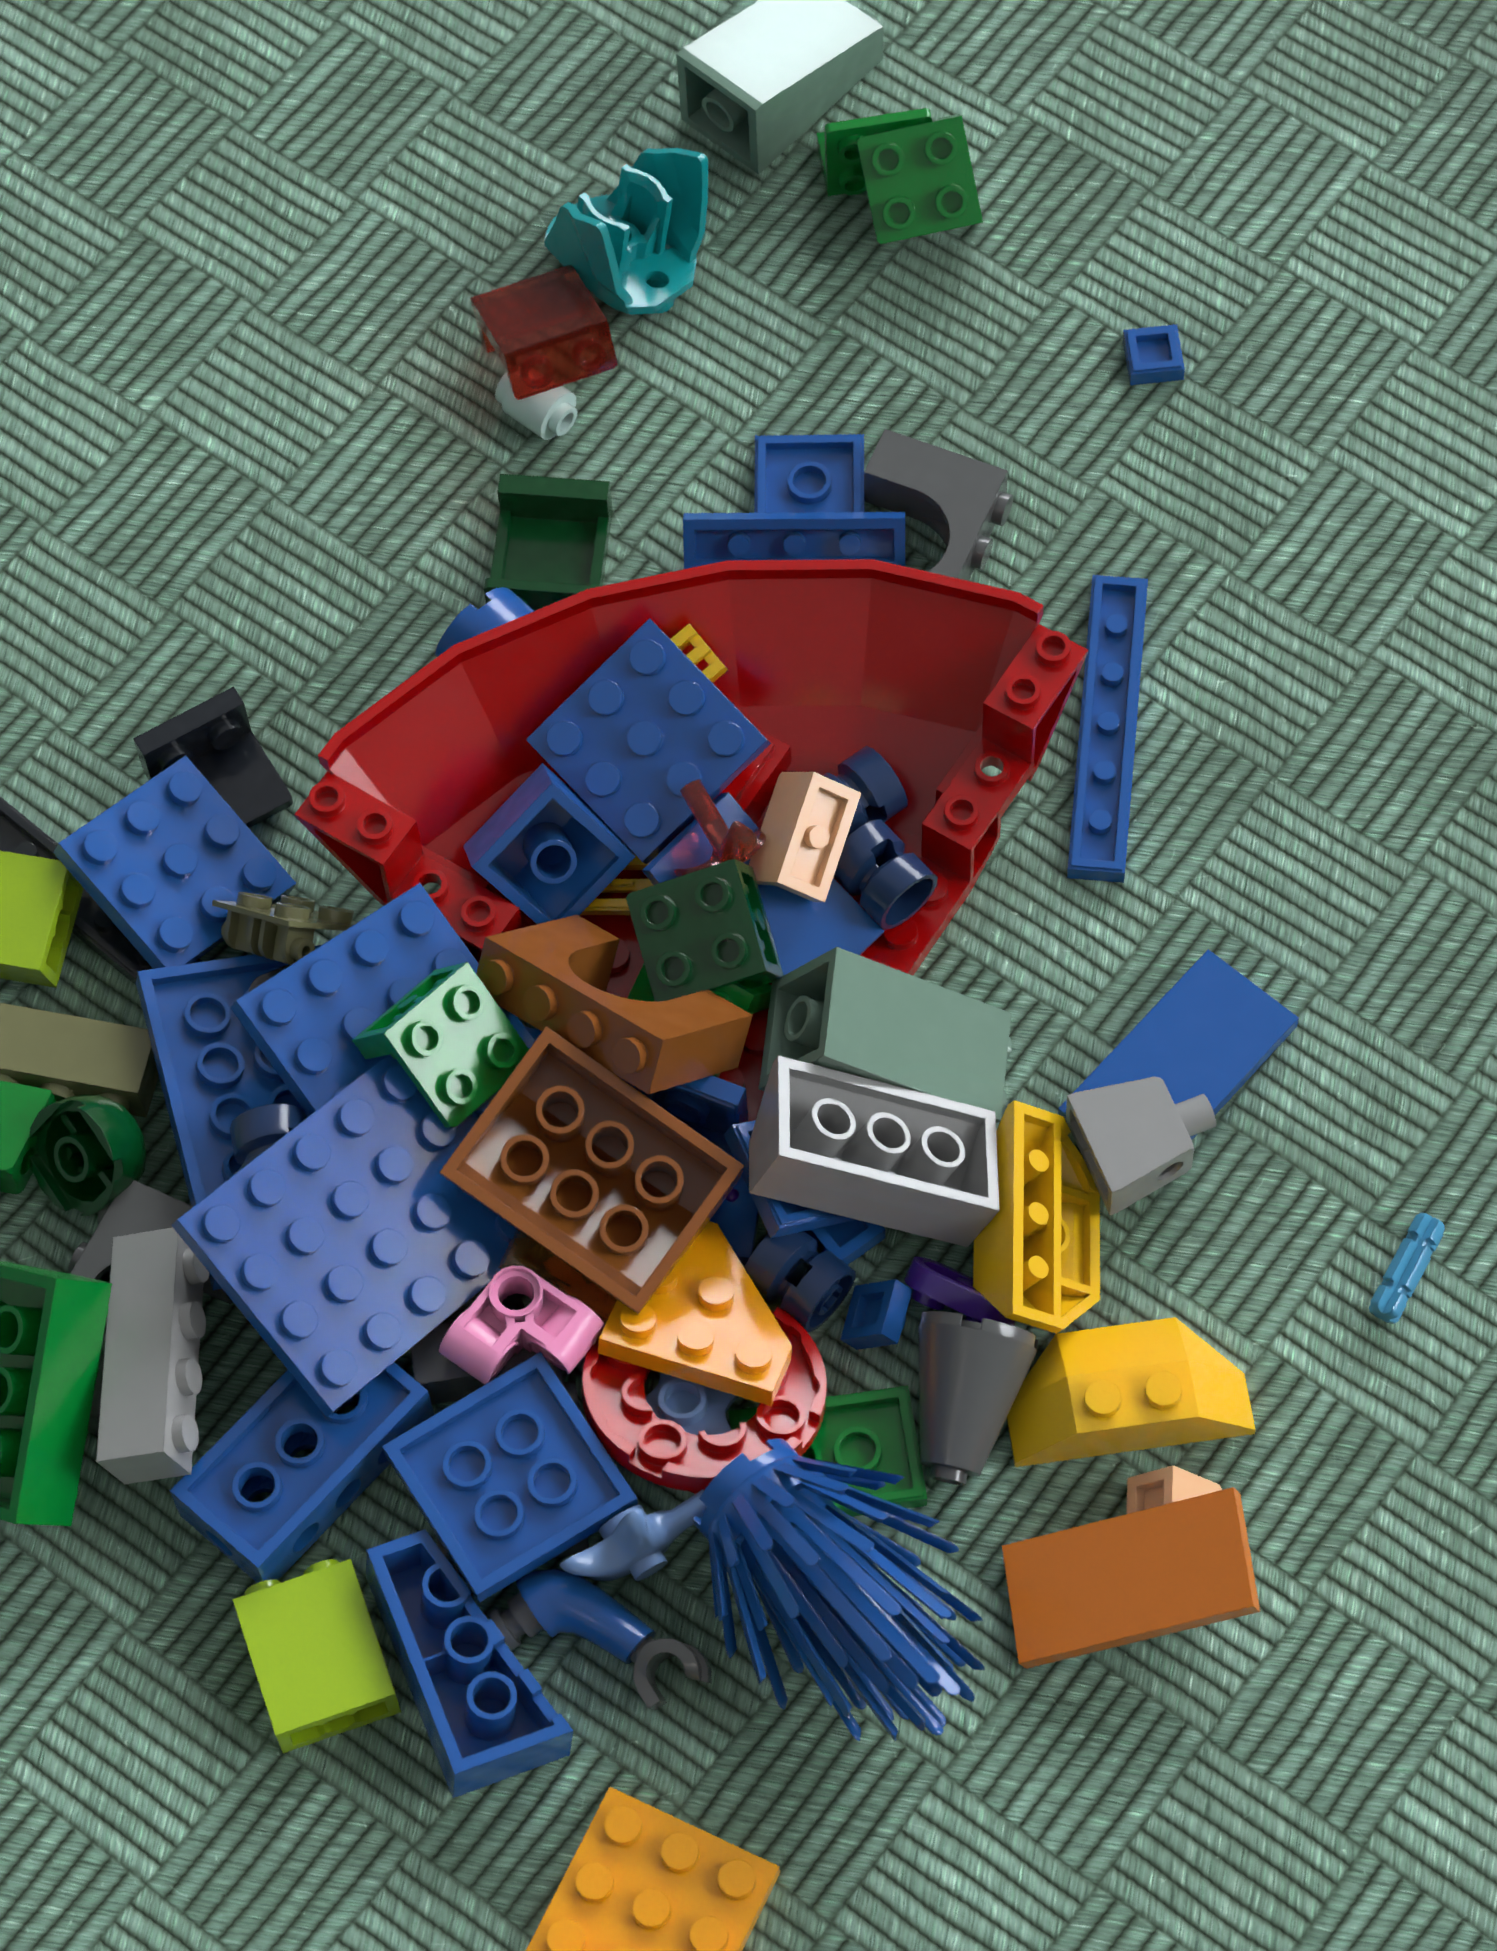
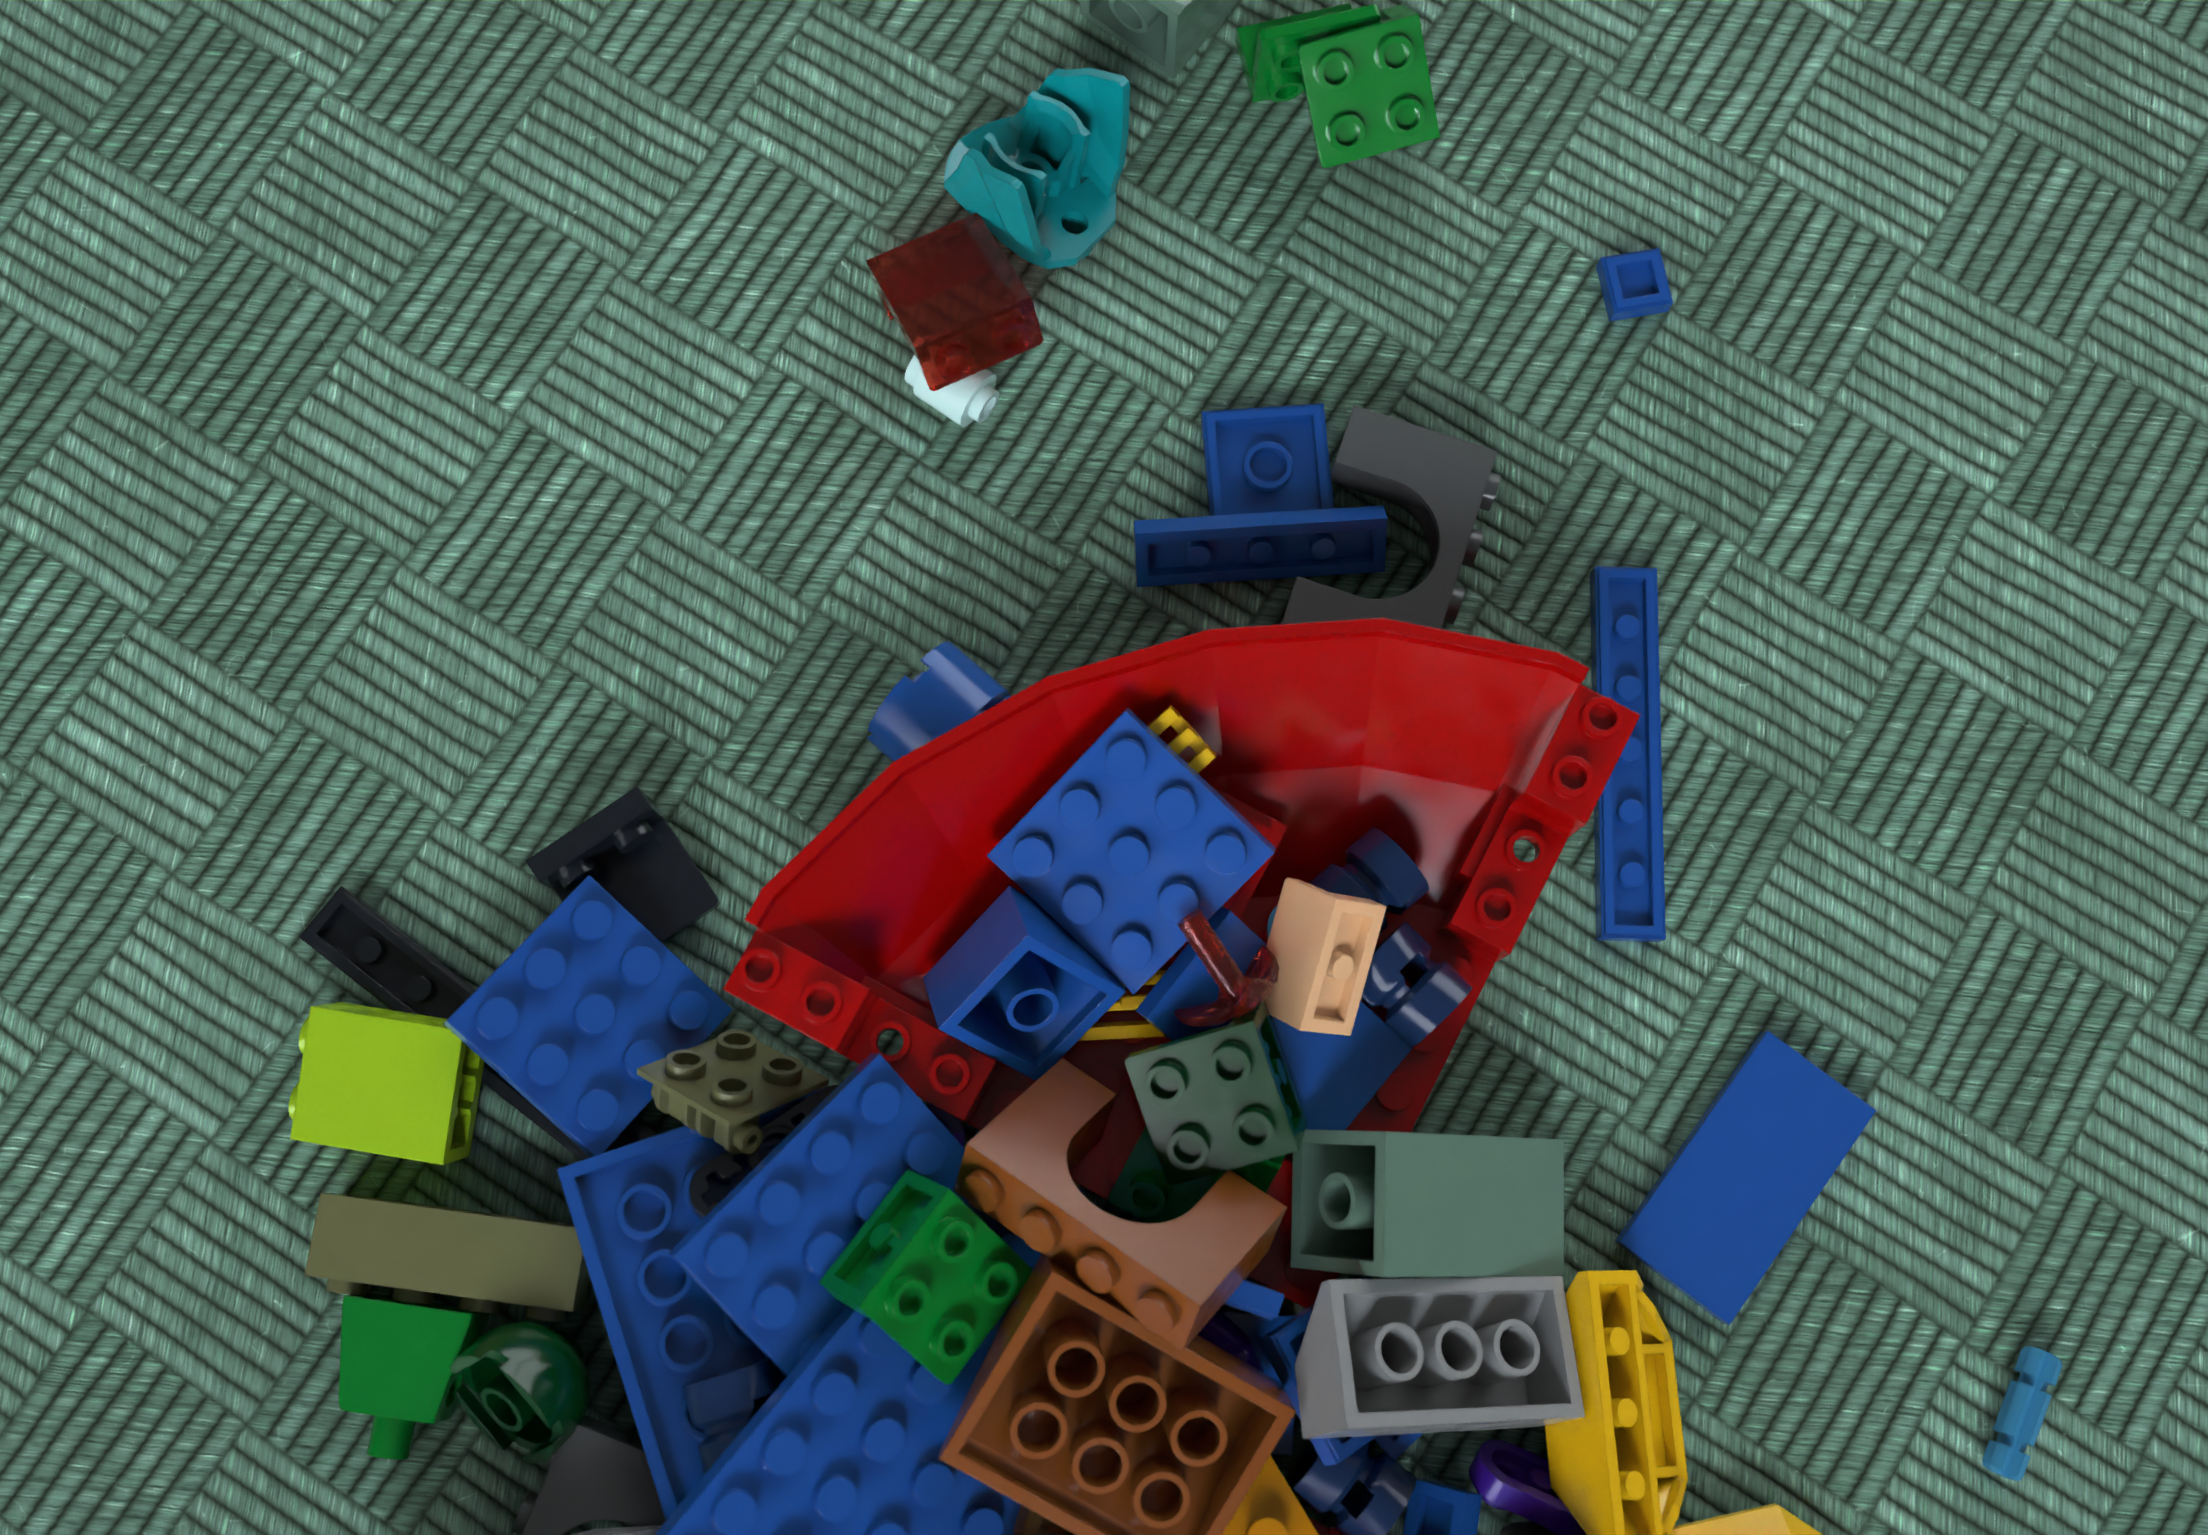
camera: 10 degrees left, 15 degrees up
(550, 537) = (983, 569): dark green panel -> none
(1135, 1137) = (1720, 1292): light grey torso -> none

